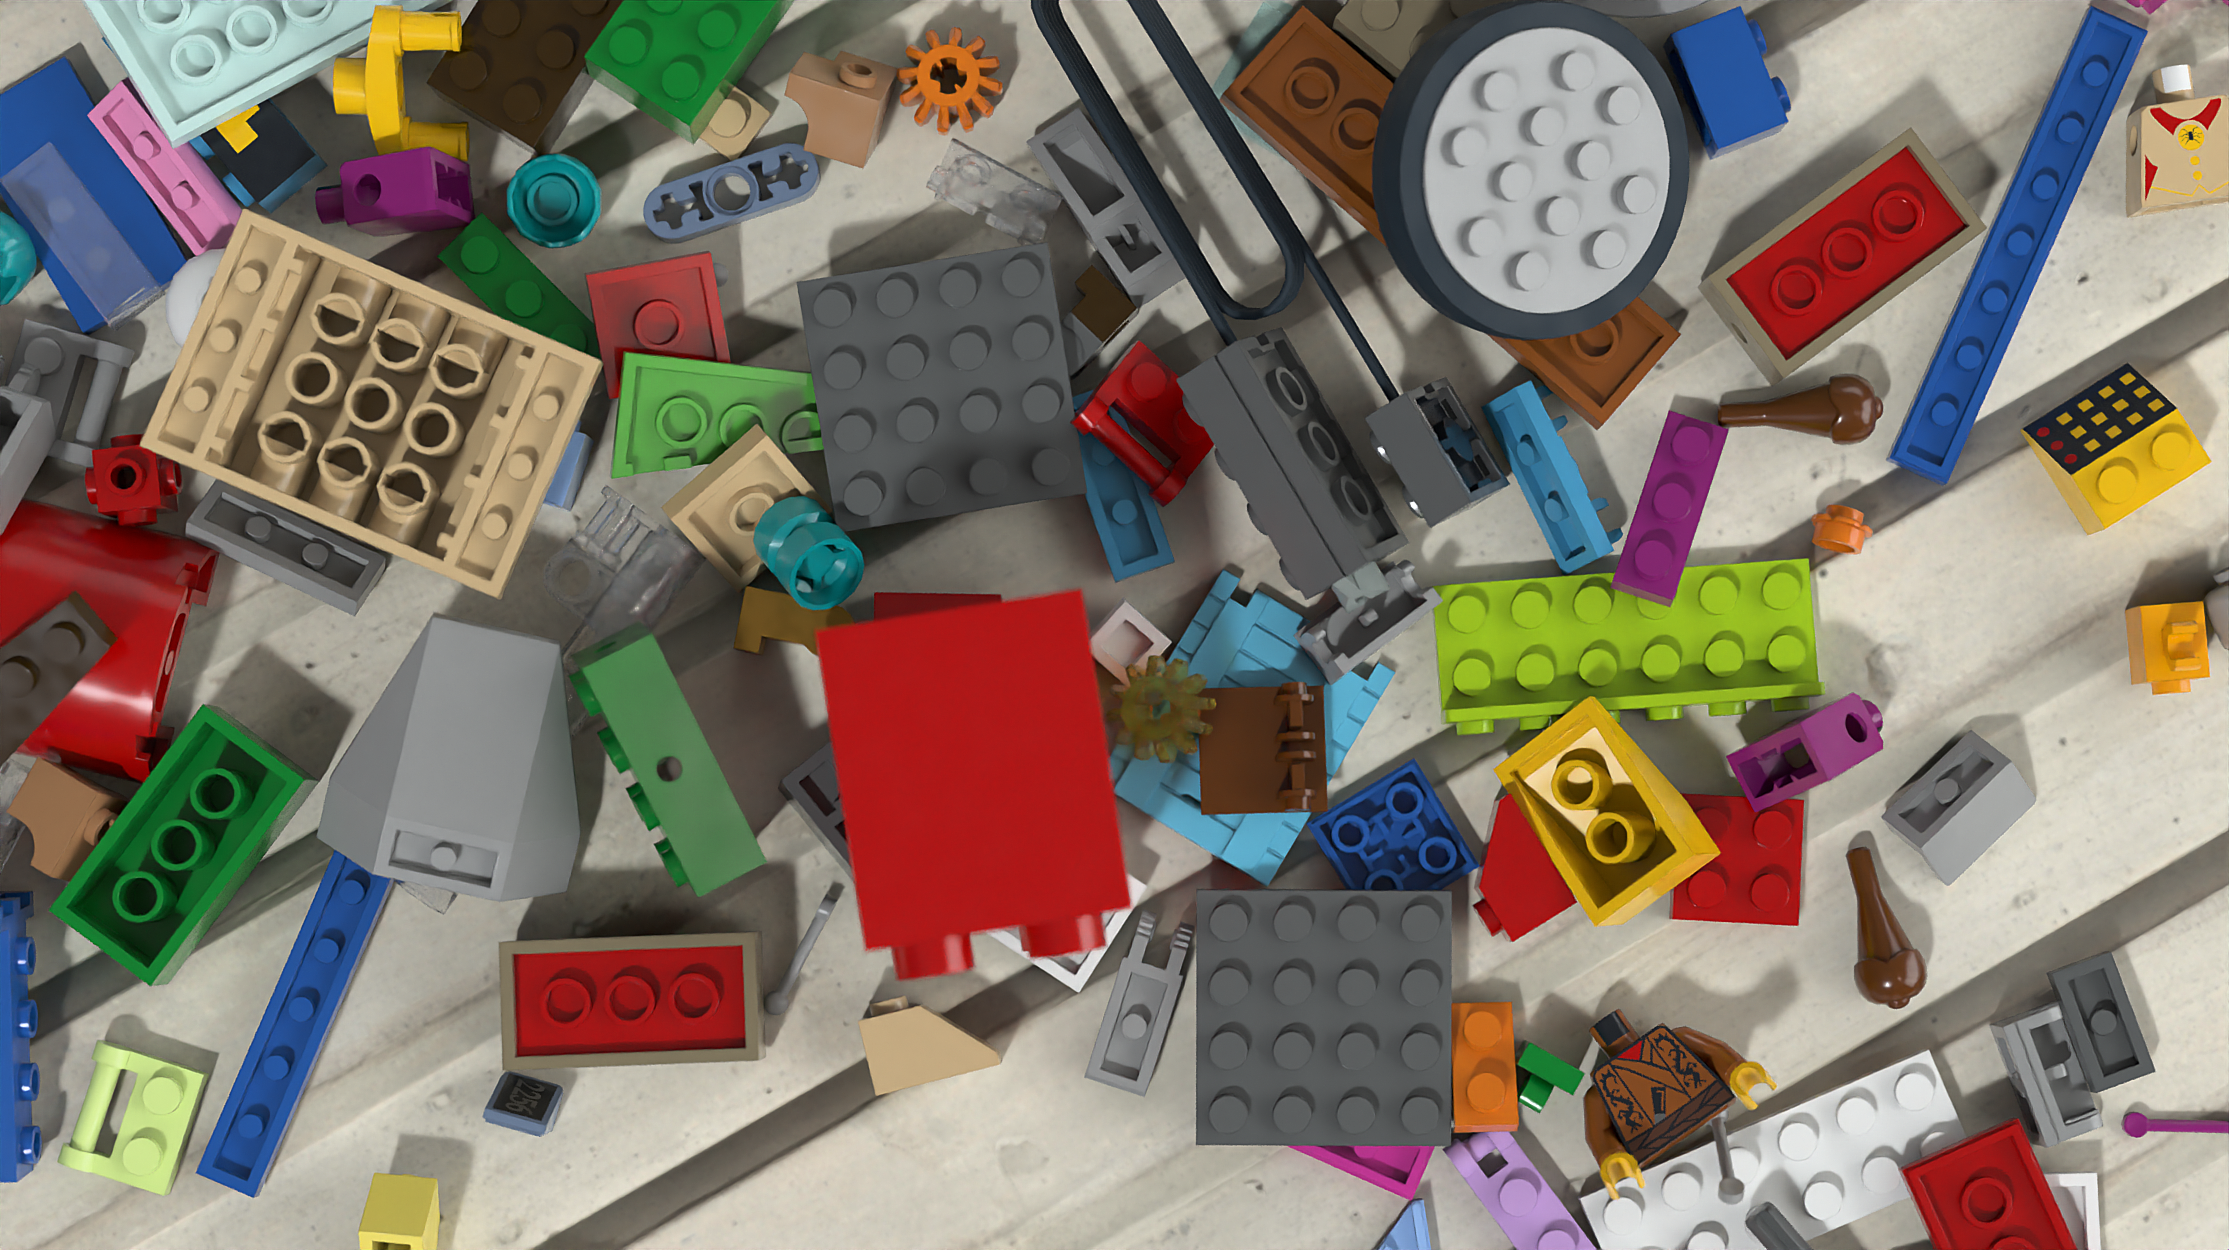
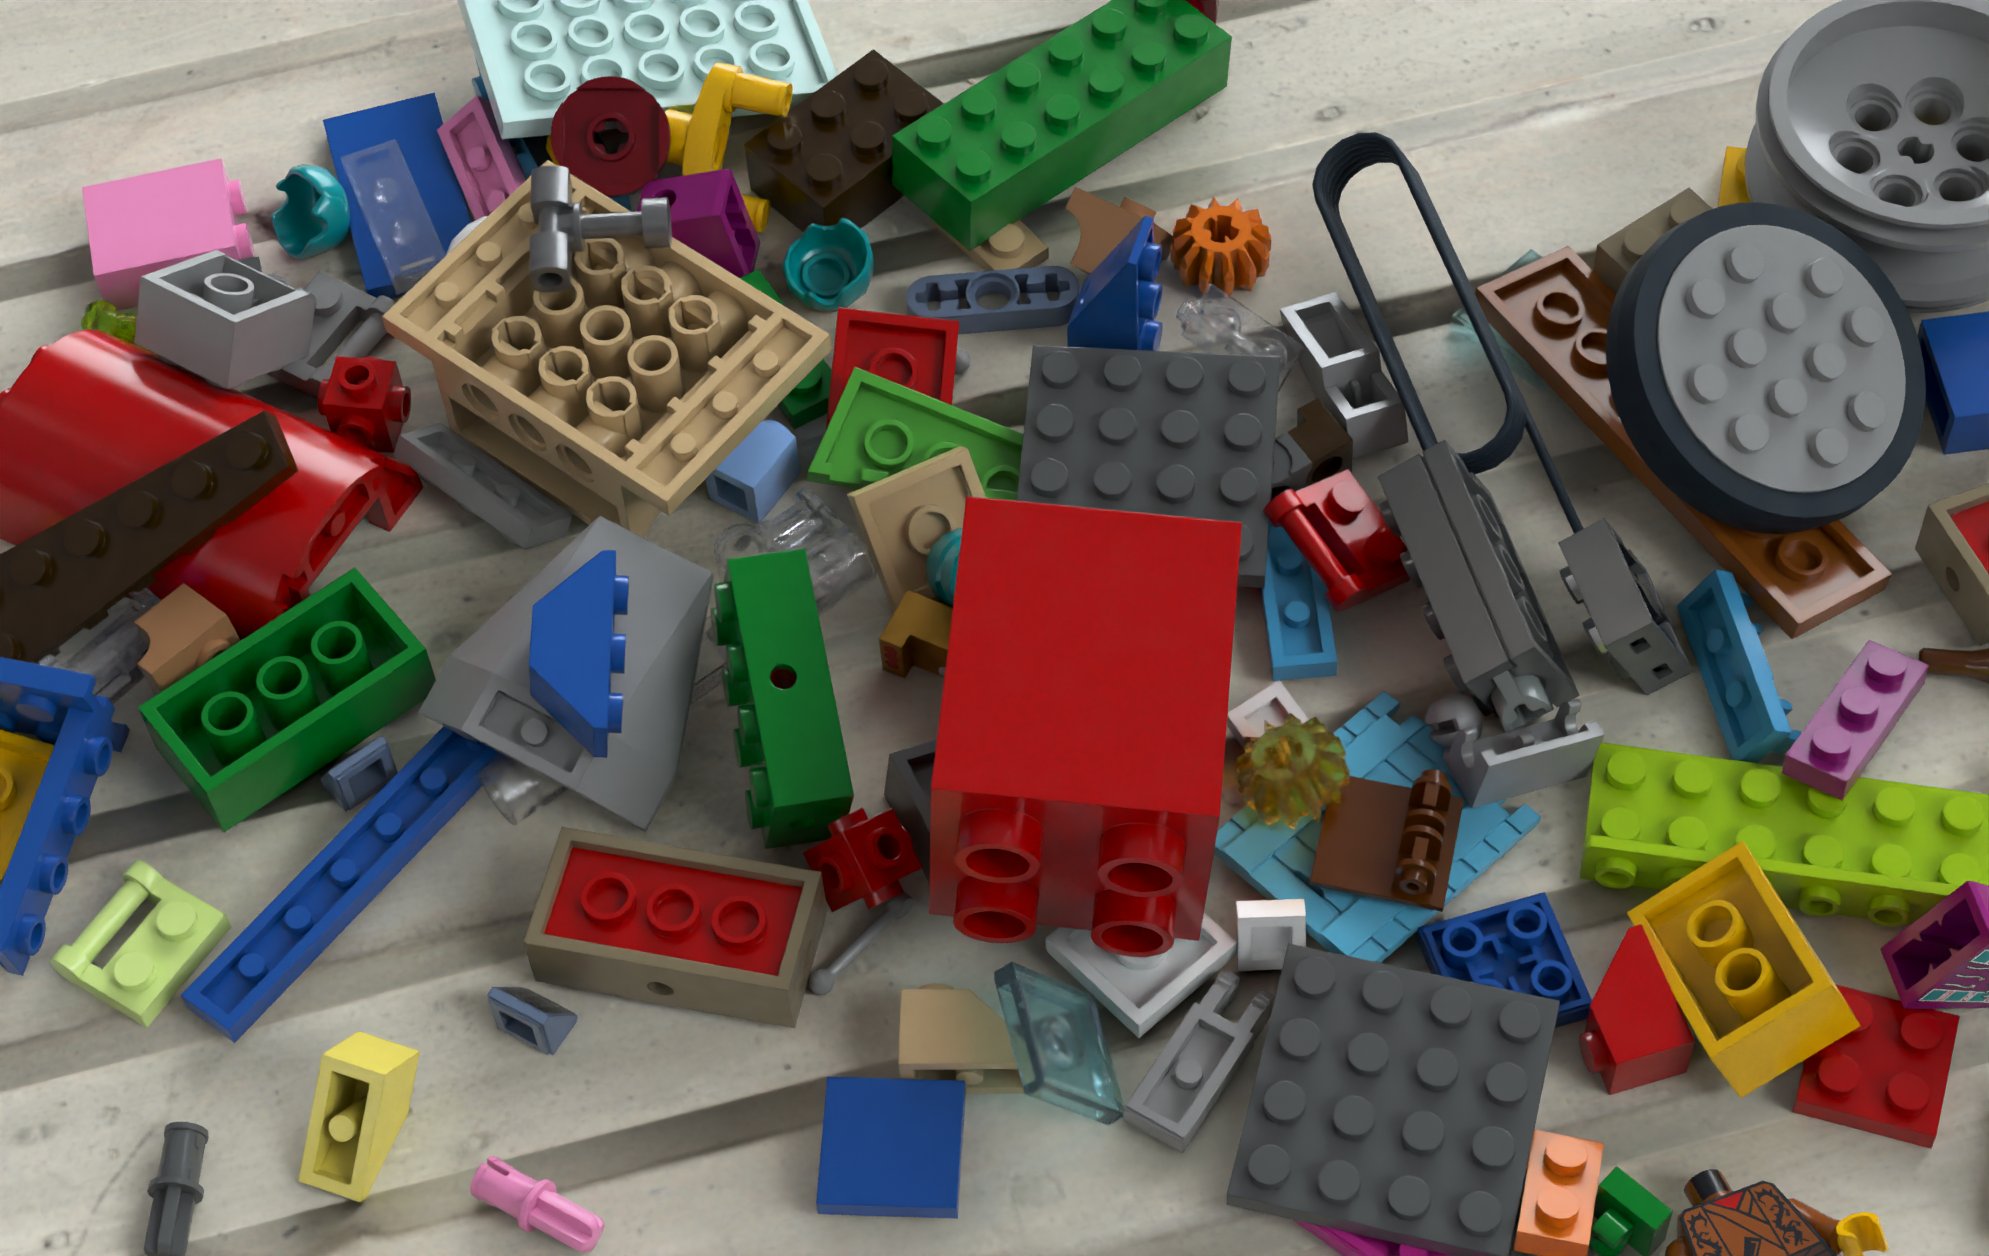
camera: 15 degrees right, 30 degrees down
(273, 891) = (361, 774): none -> sand blue slope
(296, 306) = (566, 227): none -> flat silver bar
(306, 95) = (635, 113): none -> dark red plate
(465, 786) = (578, 652): none -> blue slope
(787, 894) = (863, 859): none -> red brick
(867, 205) = (1121, 298): none -> blue slope
(887, 1160) = (891, 1147): none -> blue tile
(1014, 1038) = (1059, 1043): none -> clear light blue tile
(1175, 867) = (1266, 930): none -> white plate
(1292, 607) = (1450, 715): none -> light grey hinge

